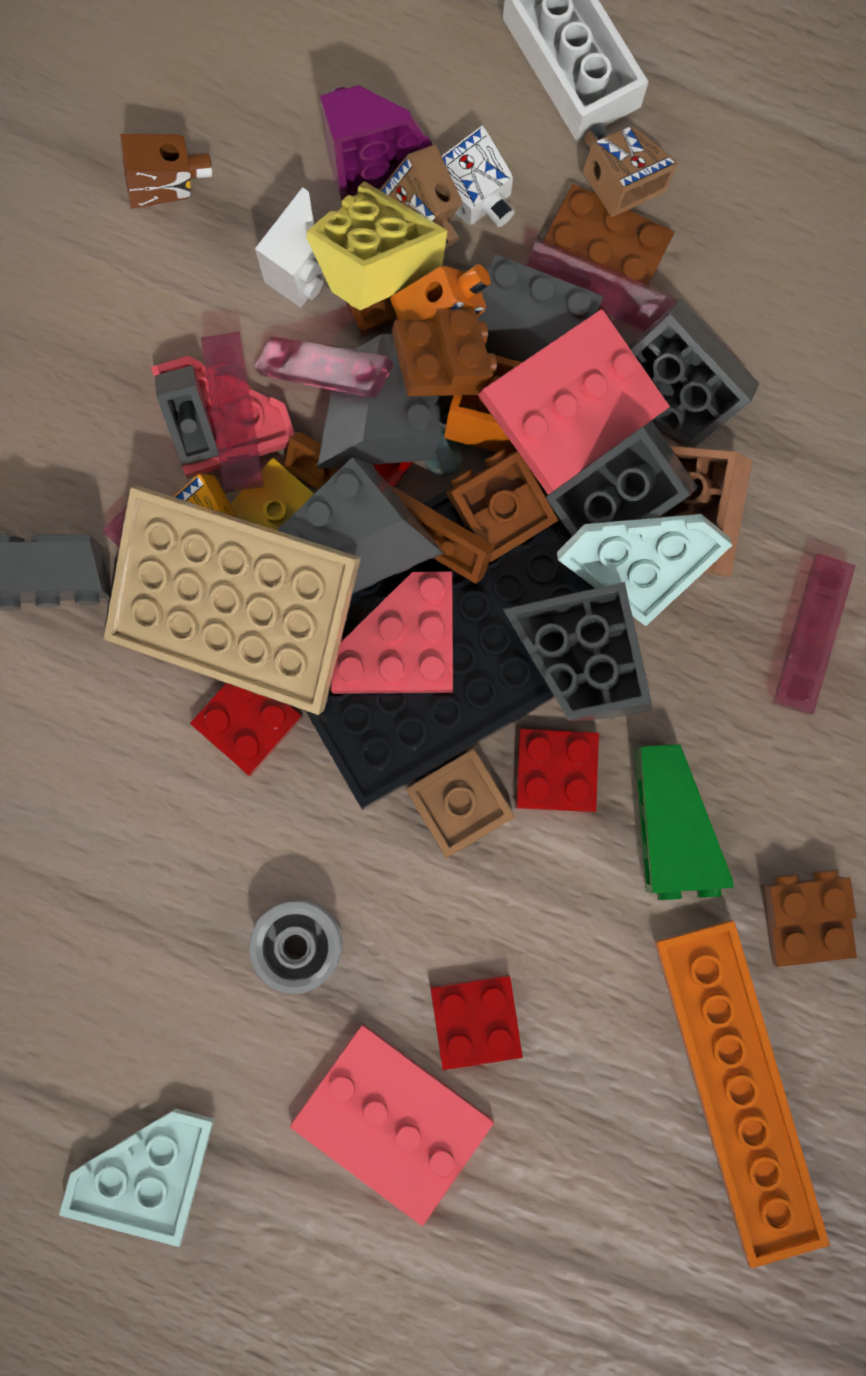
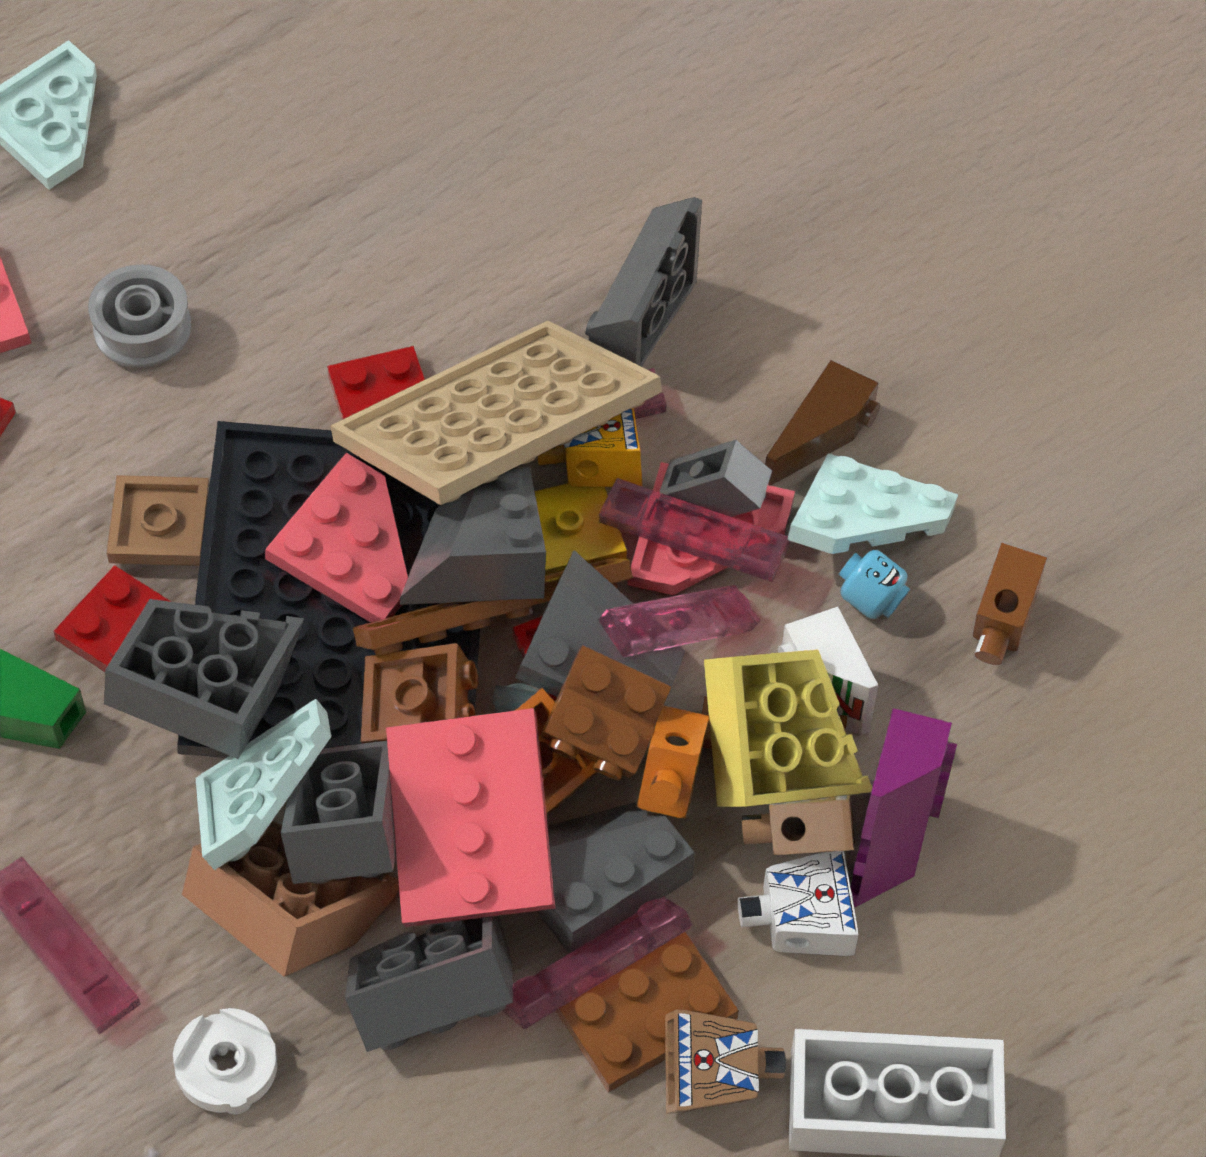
camera: 125 degrees right, 25 degrees down
(64, 383) = (825, 420): none -> reddish brown slope
(135, 310) = (867, 503): none -> light aqua plate
(196, 271) = (873, 584): none -> medium azure head
(830, 456) = (217, 1034): none -> white plate

